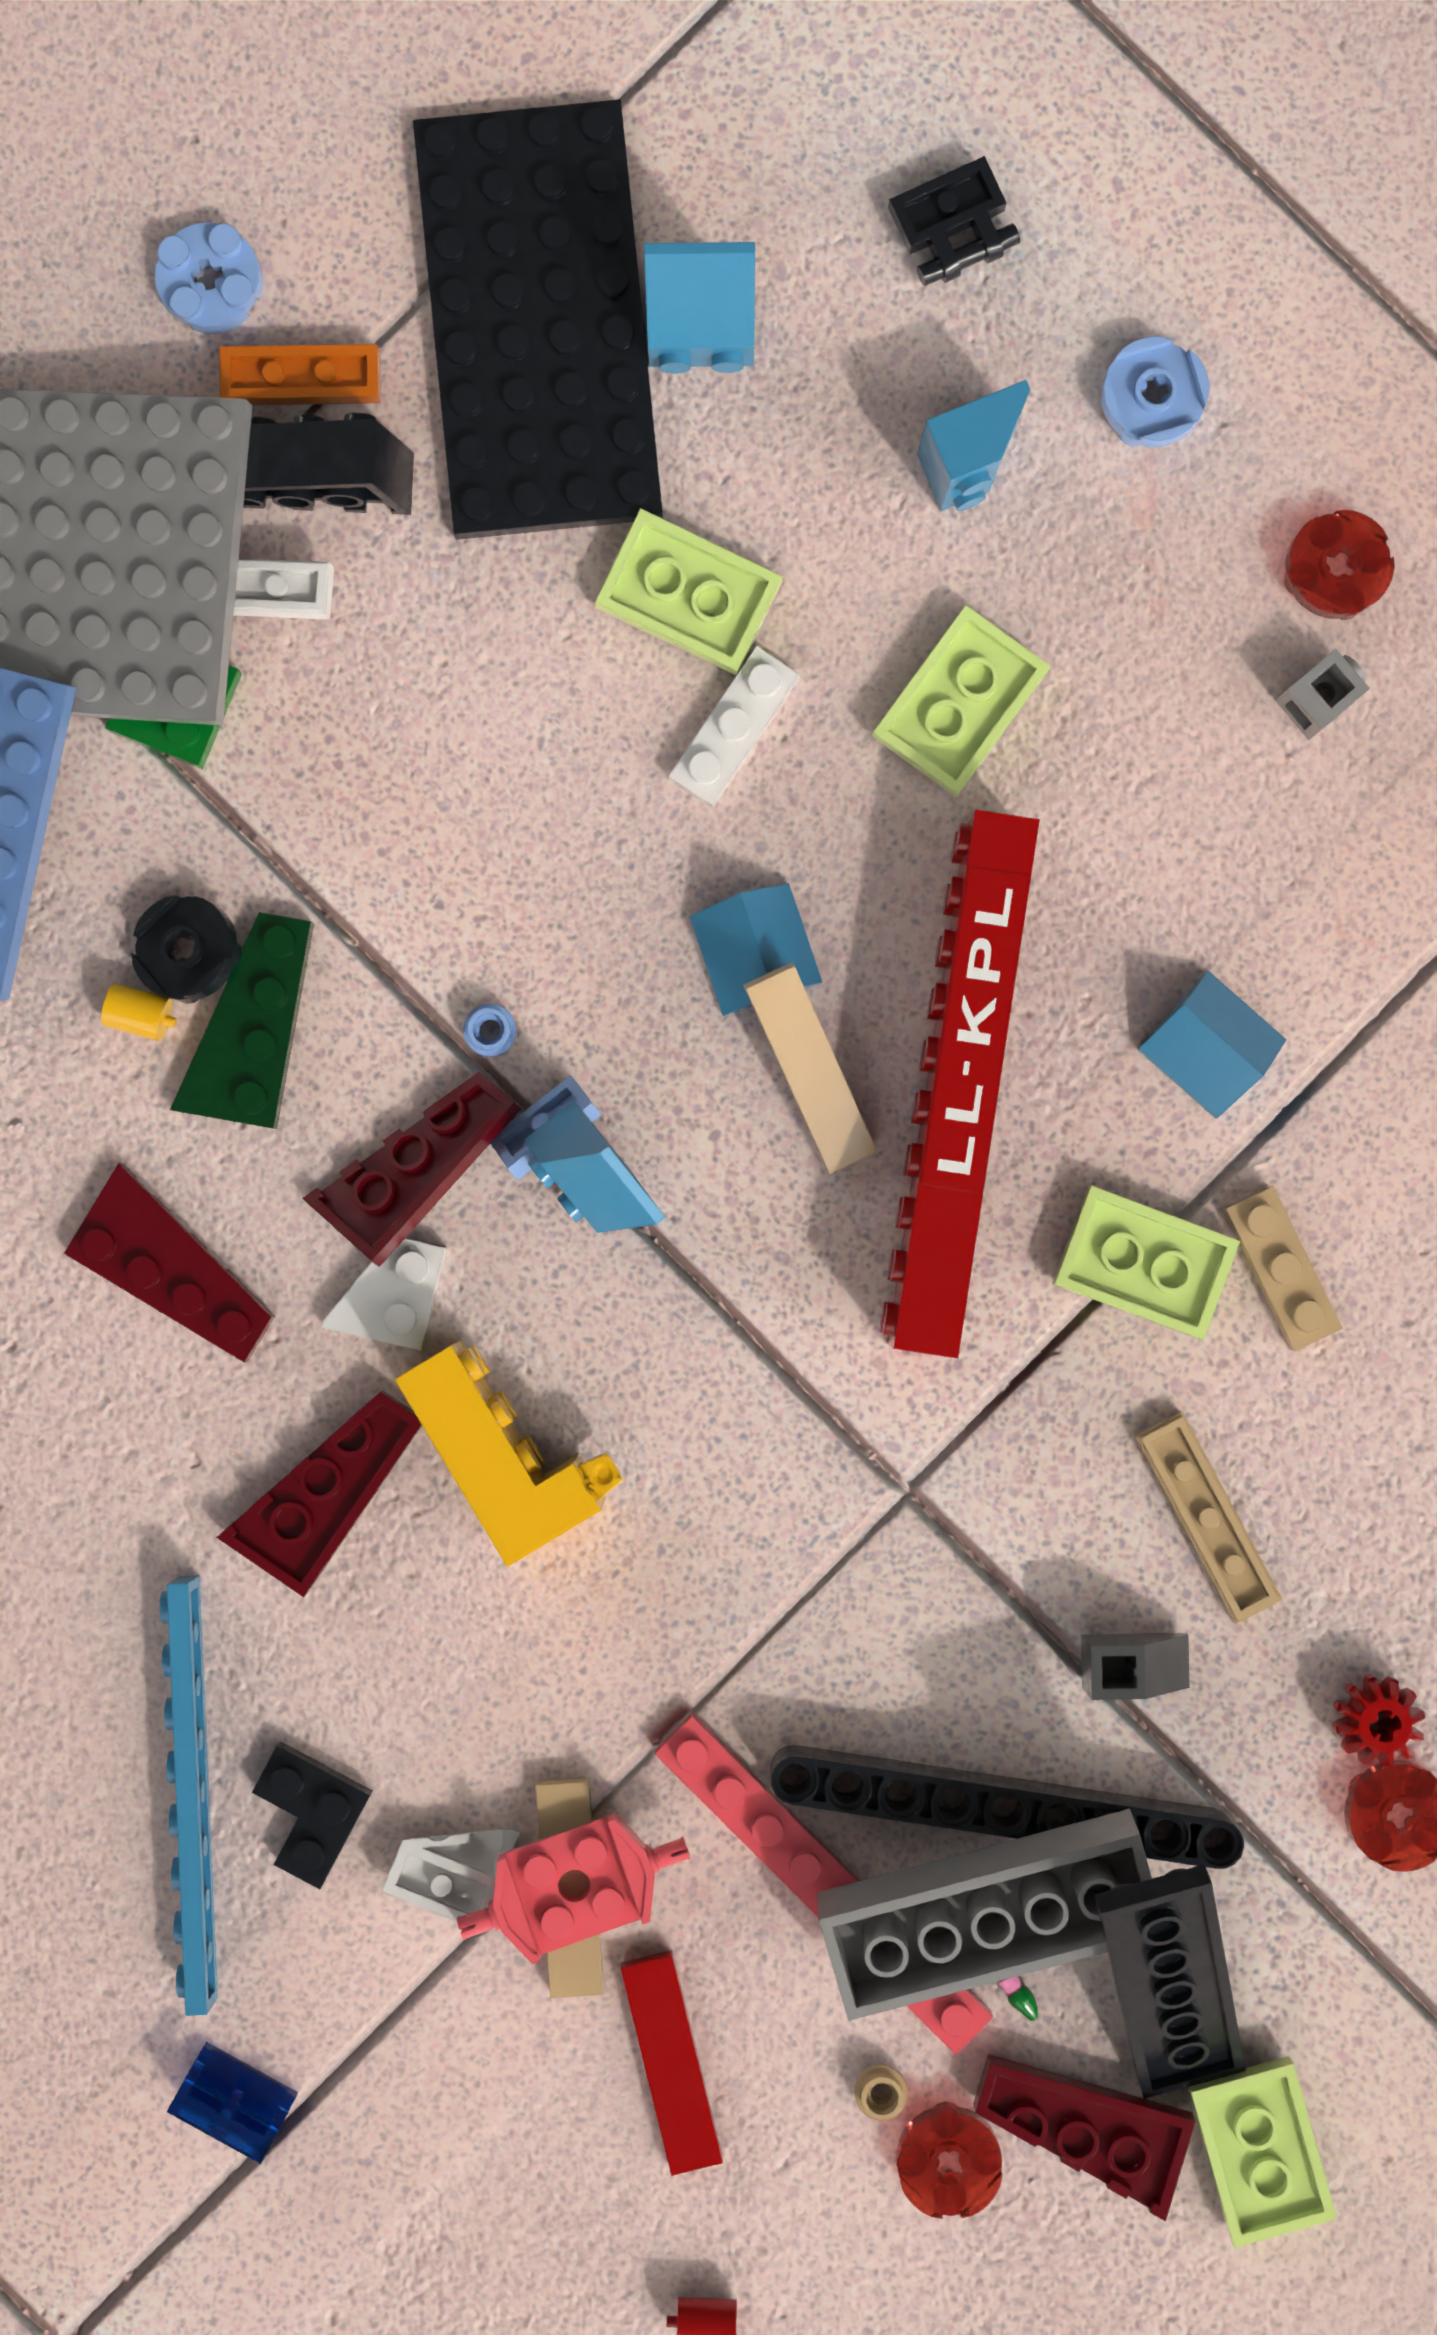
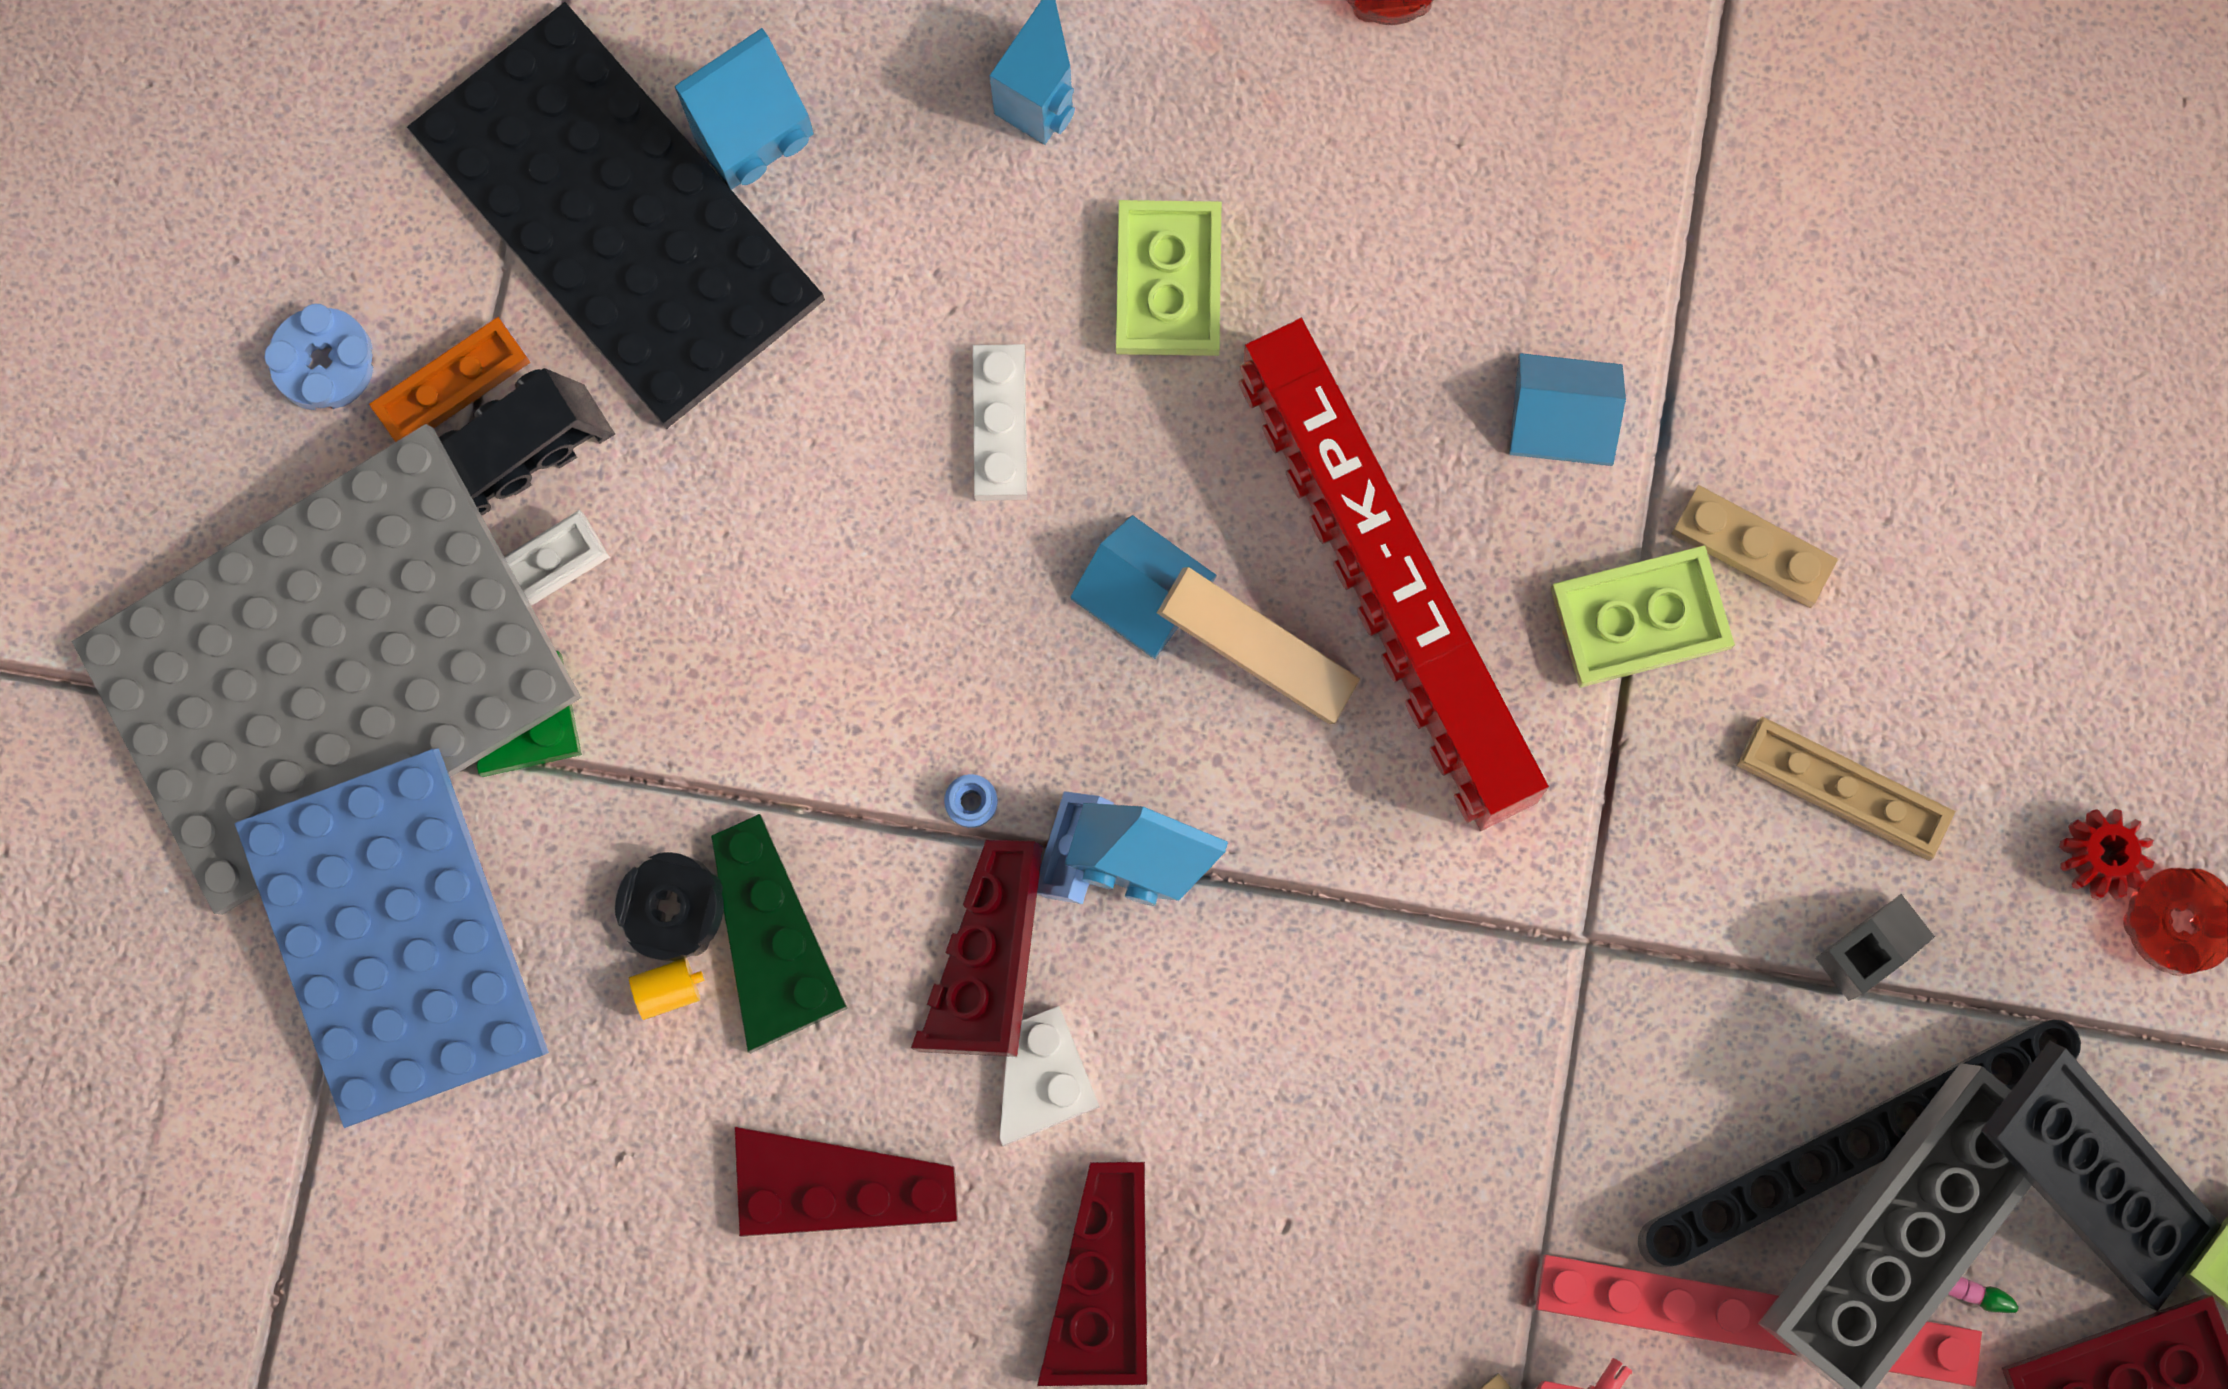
camera: 30 degrees left, 10 degrees down
(493, 1463) = (1231, 1150): yellow hinge -> none
(688, 592) = (887, 340): yellowish green plate -> none
(1307, 708) = (1448, 97): light grey brick -> none

